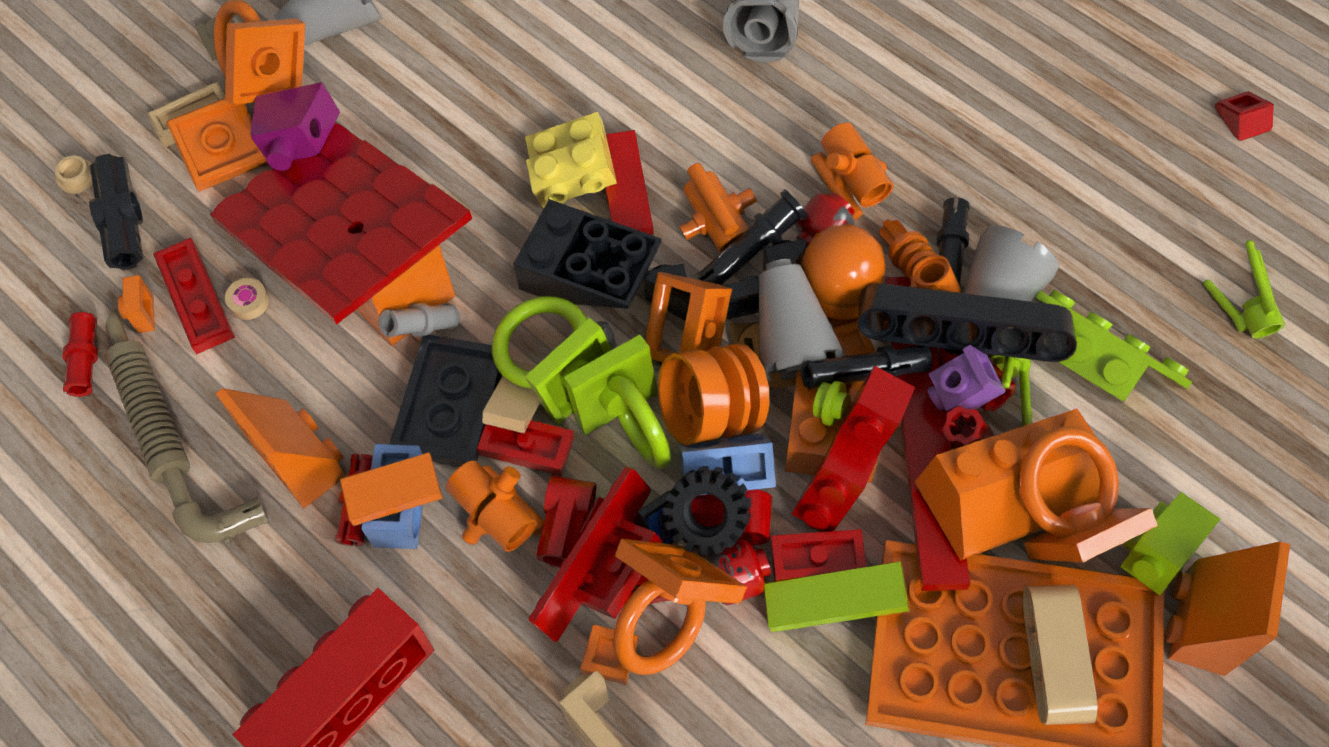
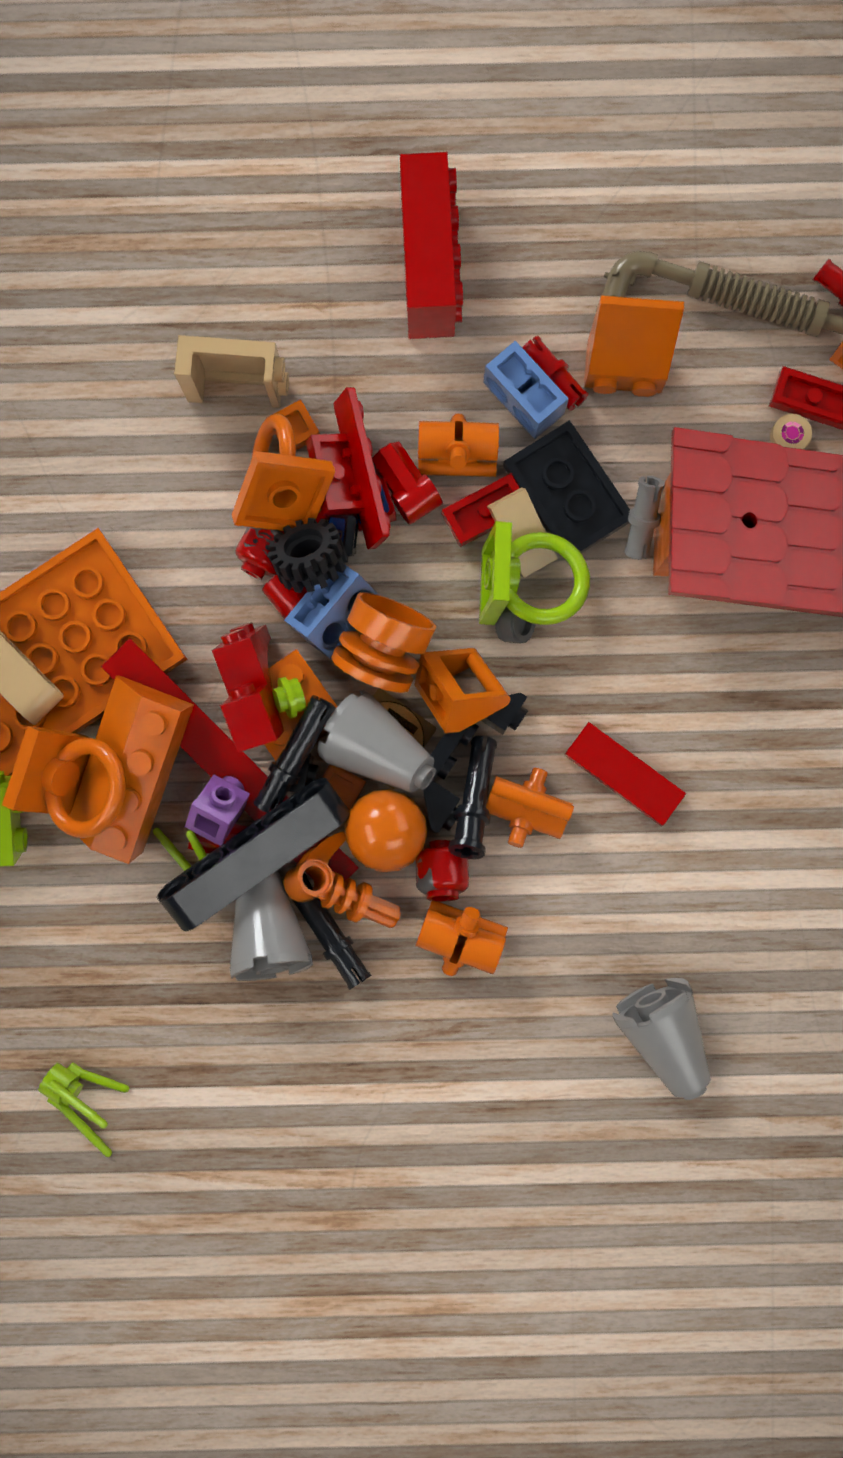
camera: 135 degrees right, 20 degrees up
(391, 489) = (521, 376): orange tile -> none
(569, 160) = (682, 750): light yellow plate -> none
(584, 258) = (579, 673): black slope -> none
(620, 387) = (447, 586): lime tile -> none
(816, 553) = (221, 609): red plate -> none
(836, 597) = (183, 588): lime tile -> none
(965, 427) = (185, 776): red piece -> none
(1107, 359) = (147, 948): lime bracket -> none
(1246, 115) = (209, 1294): red slope -> none

